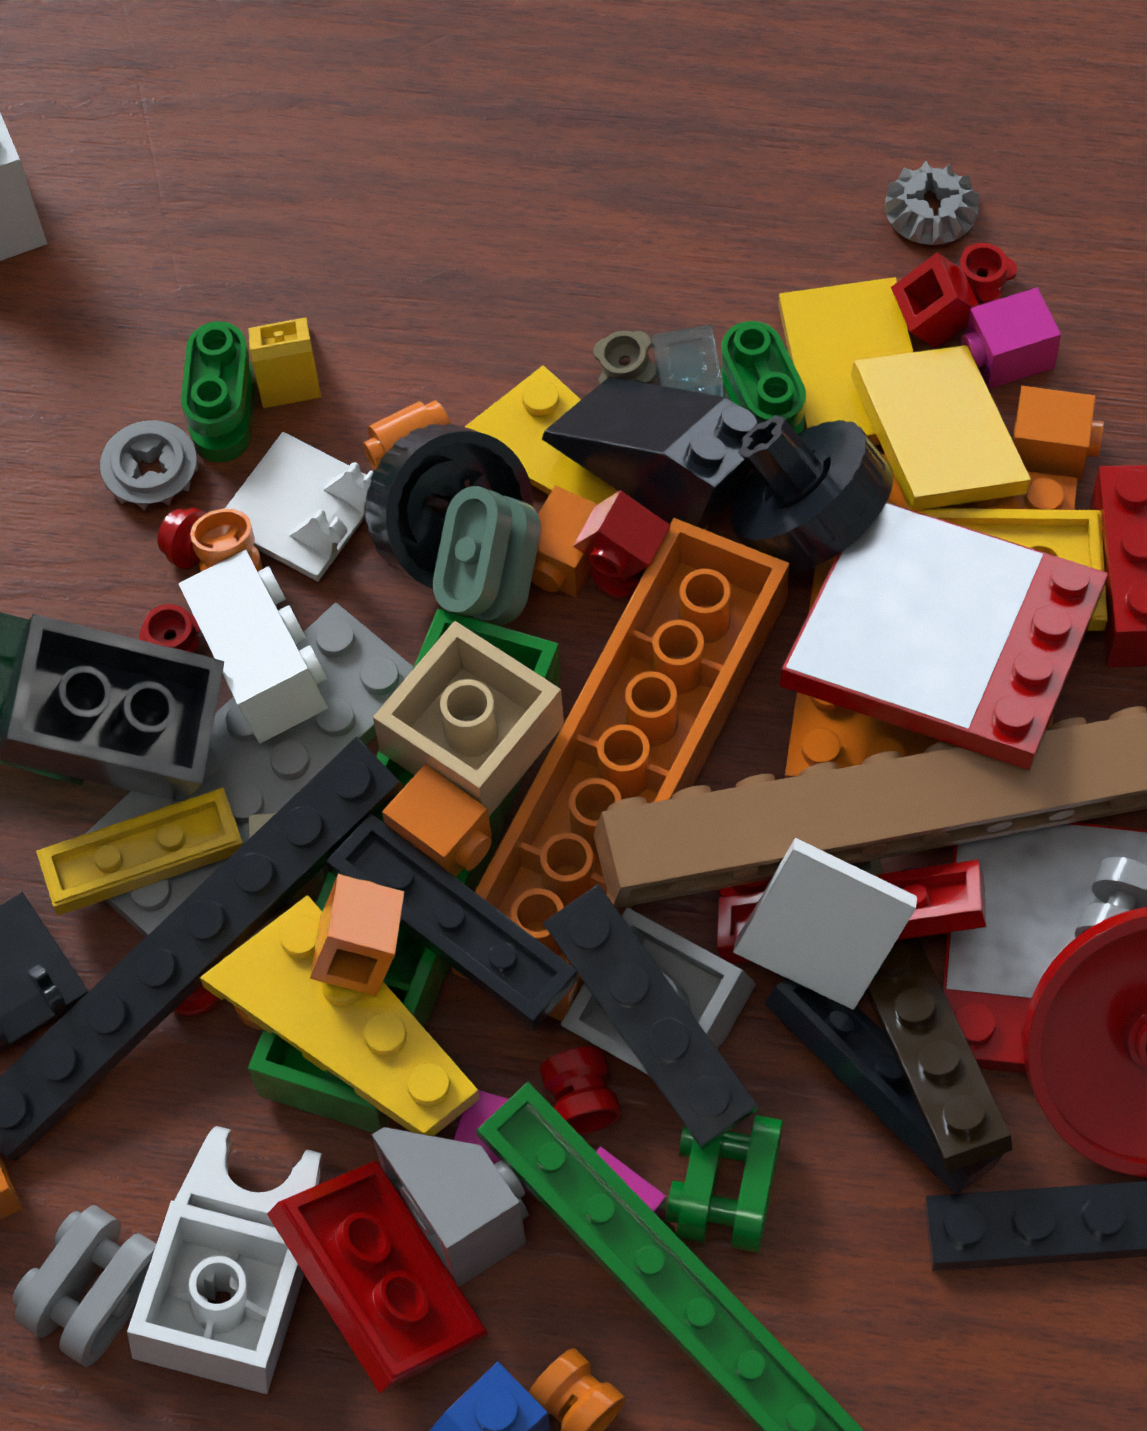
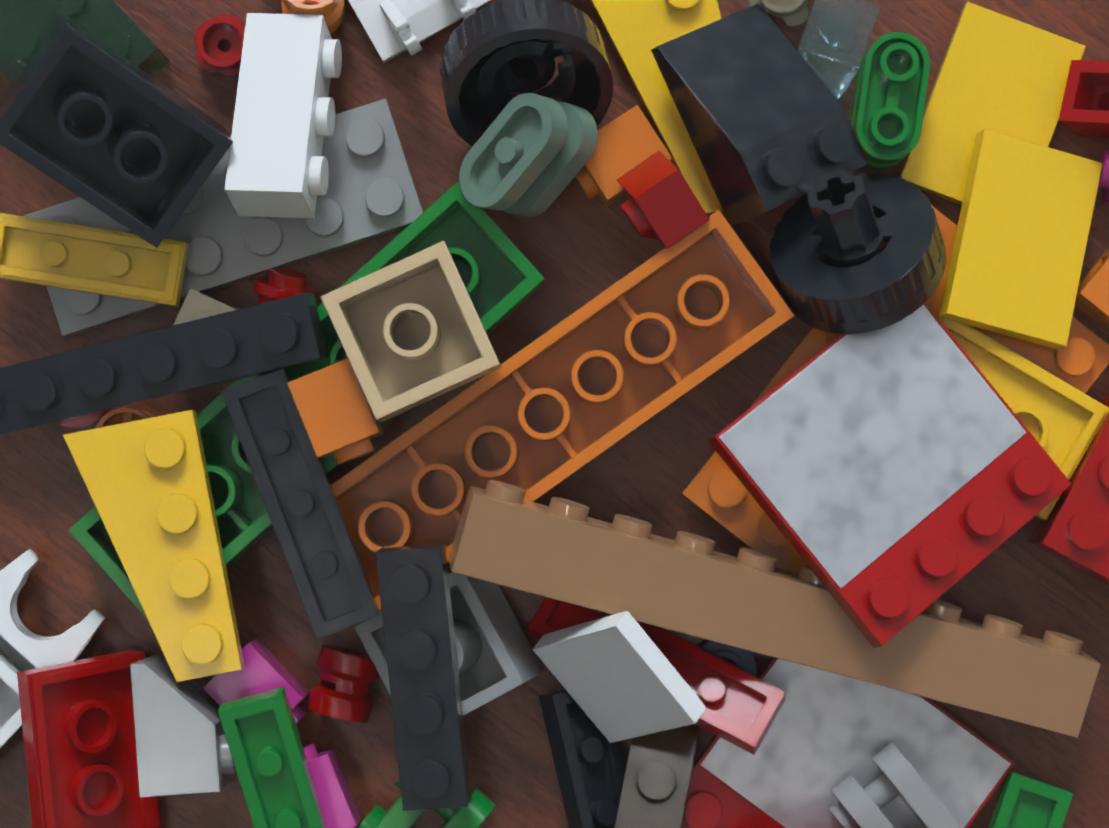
camera: 30 degrees right, 25 degrees up
(357, 935) = (206, 487): orange brick -> none

